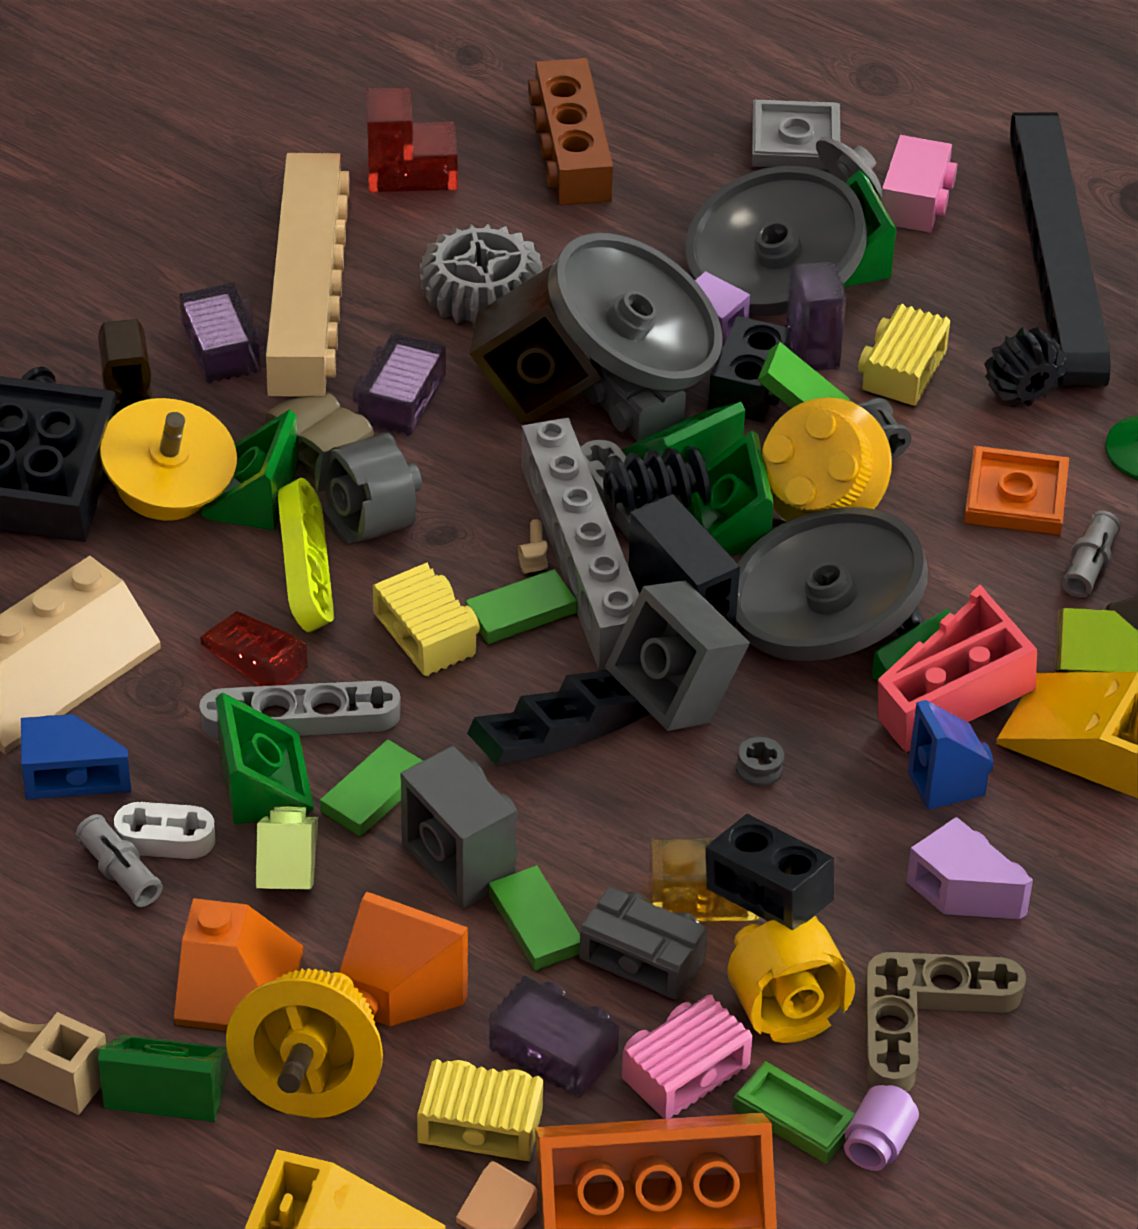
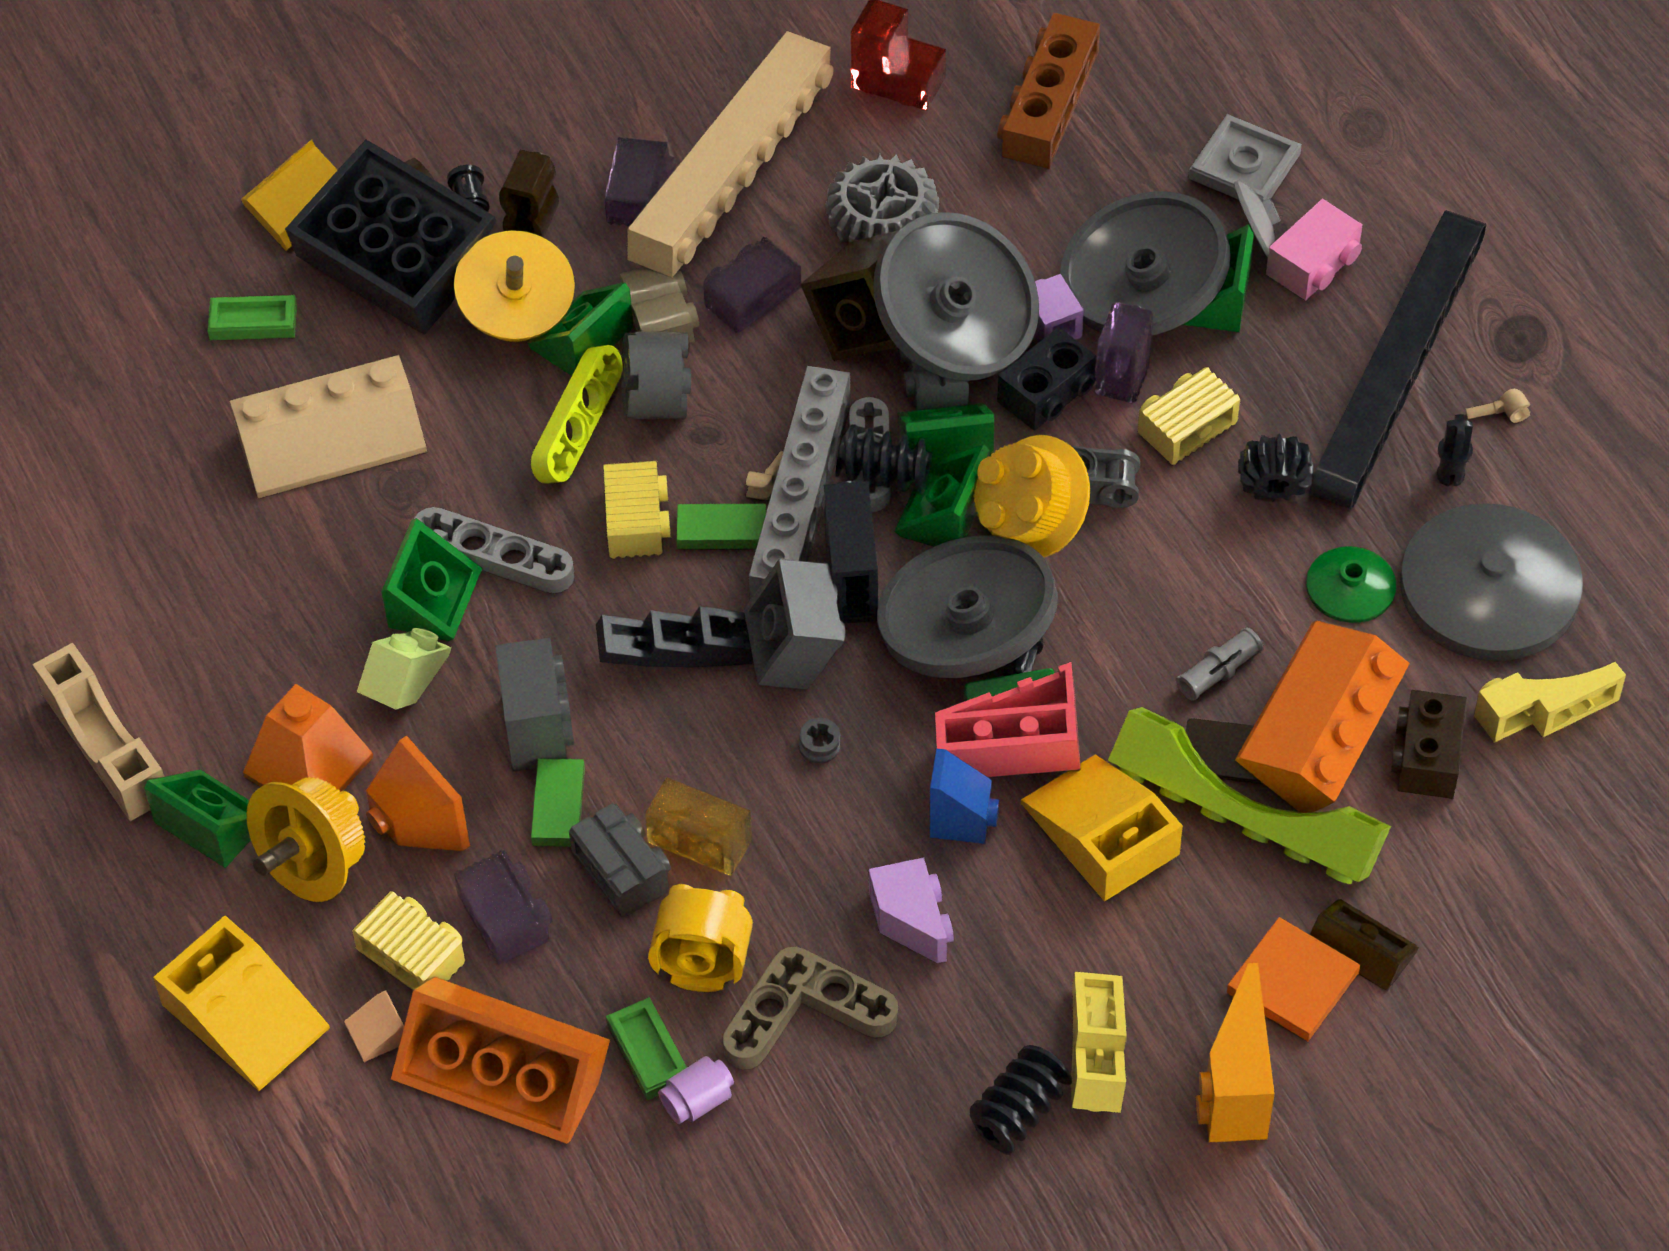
camera: 30 degrees right, 10 degrees up
(70, 759) = (288, 523): blue slope -> none
(119, 860) = (278, 625): light grey pin -> none
(166, 829) = (333, 607): white beam -> none
(287, 650) = (496, 507): clear red slope -> none
(369, 789) = (480, 642): bright green tile -> none
(686, 1056) = (589, 967): bright pink brick -> none
(769, 872) = (717, 848): black brick -> none
(794, 379) = (1071, 413): bright green tile -> none
(1017, 490) = (1201, 578): orange tile -> none

